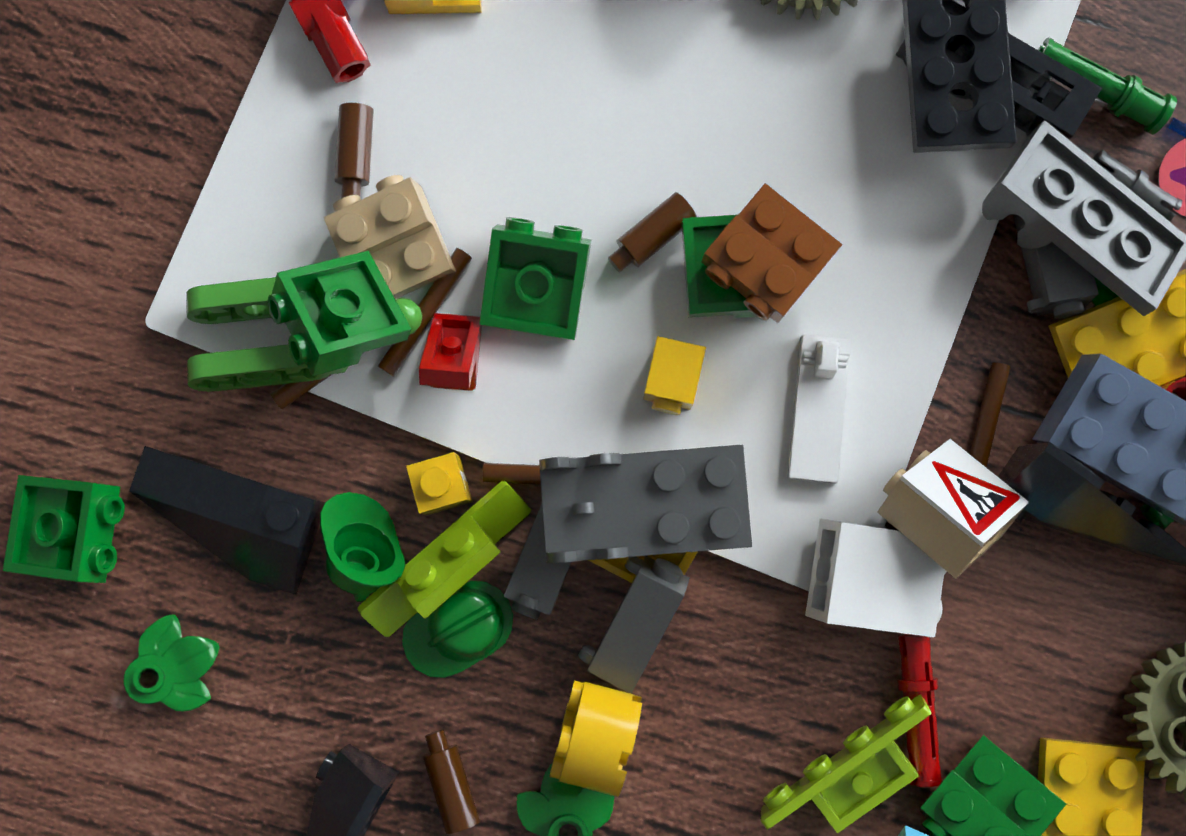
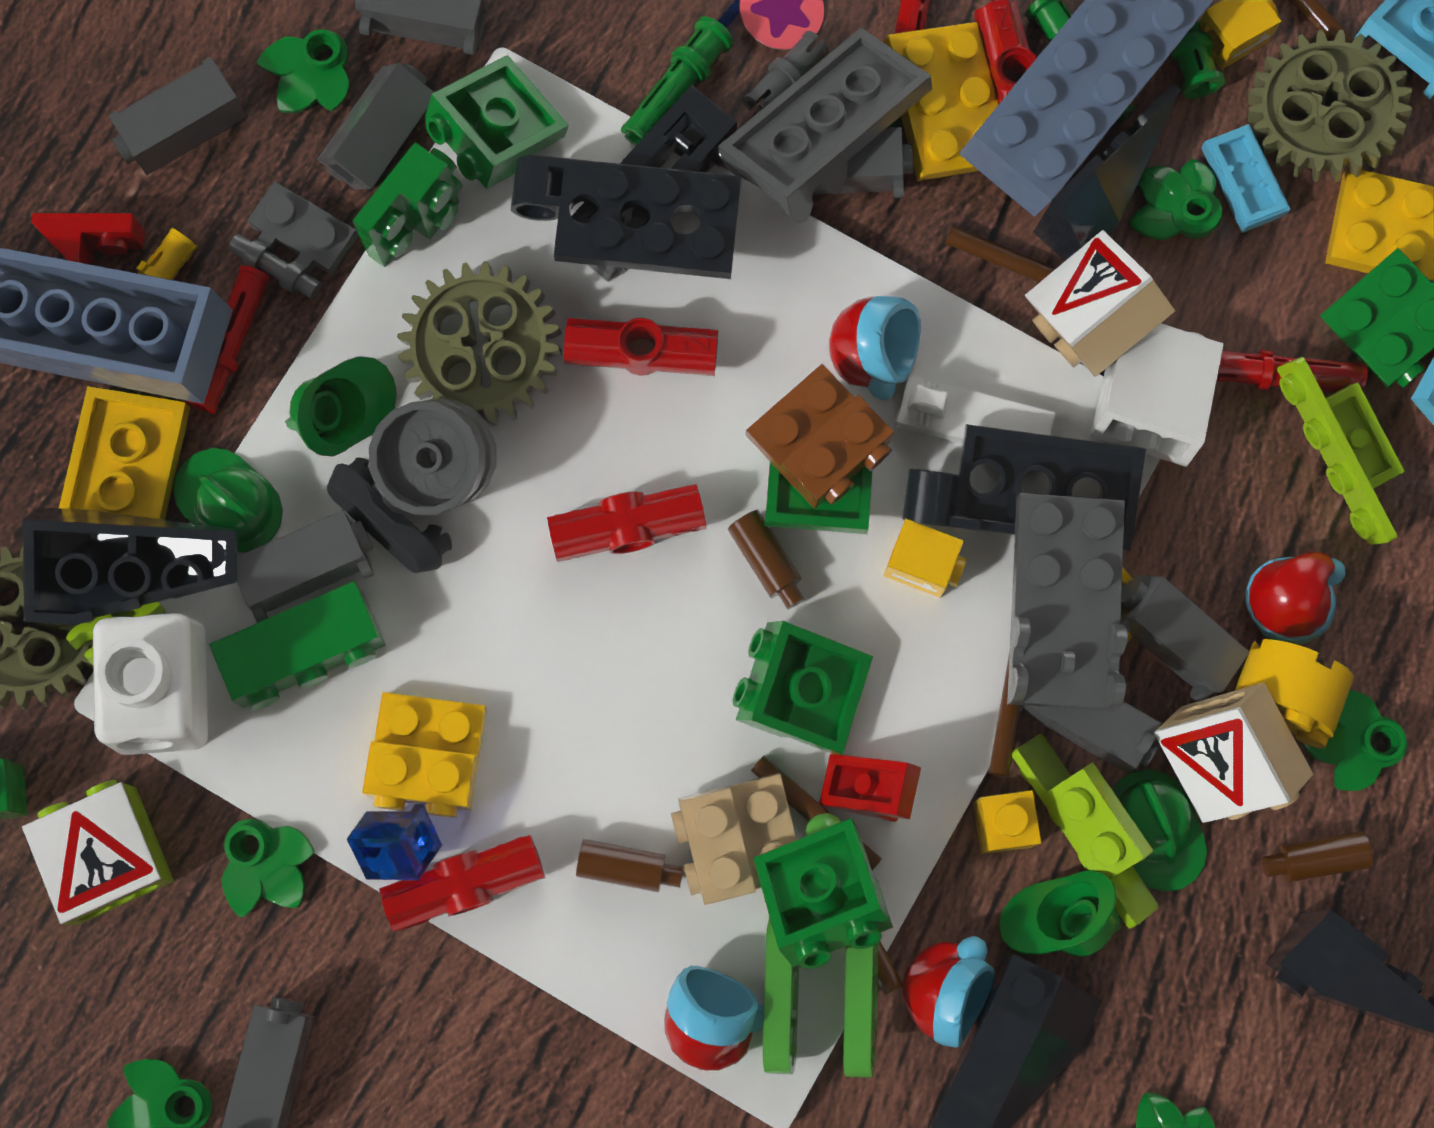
camera: 85 degrees left, 5 degrees down
(227, 237) = (710, 1018): none -> medium azure piece
(279, 448) = (948, 989): none -> piece
(526, 686) = (1234, 754): none -> piece
(665, 101) = (626, 522): none -> red piece
(695, 736) = (1294, 596): none -> red piece
(732, 393) = (953, 502): none -> black hinge
(834, 61) = (607, 345): none -> red piece
(876, 302) = (876, 343): none -> medium azure piece
(1079, 575) = (1171, 197): none -> green plate
(1113, 646) = (1245, 178): none -> medium azure plate

